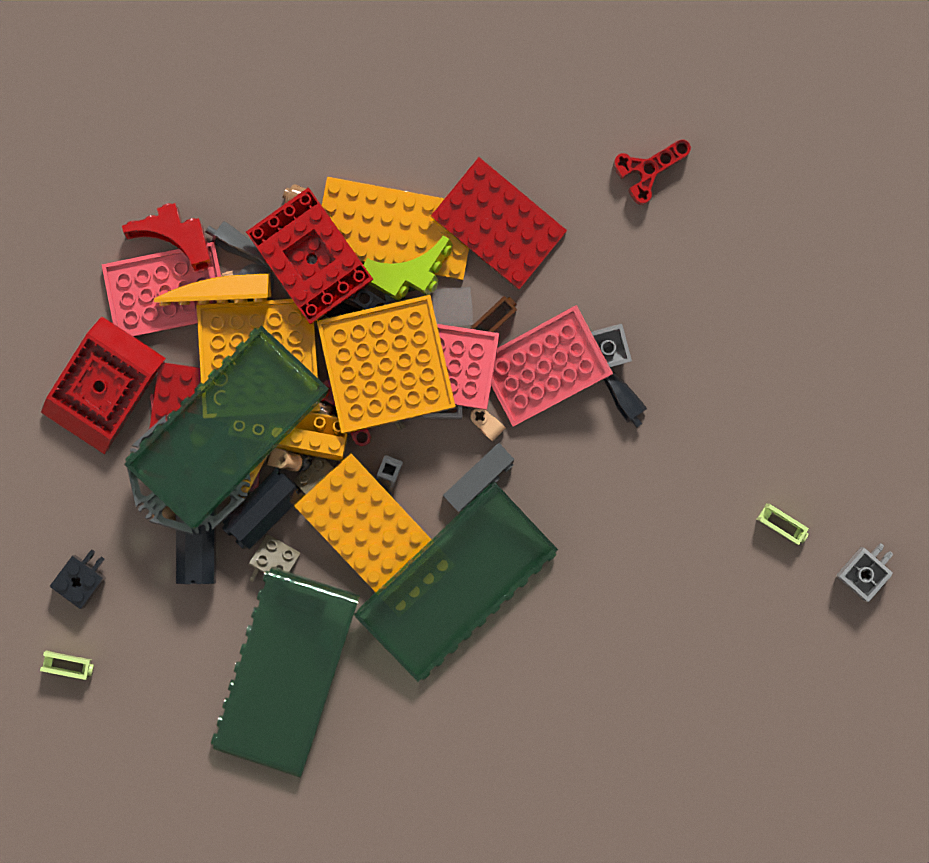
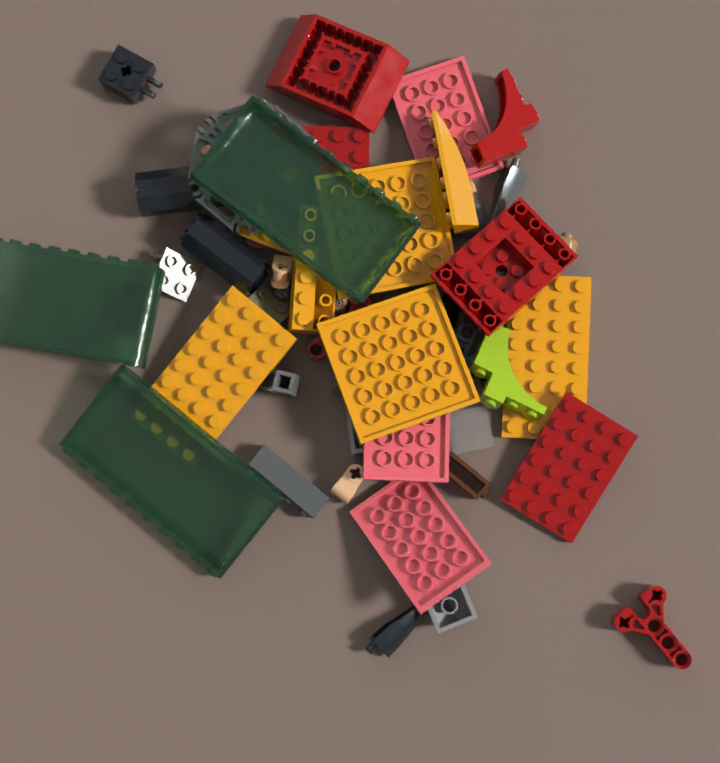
camera: 85 degrees right, 5 degrees down
(48, 661) = (31, 77): yellowish green window -> none

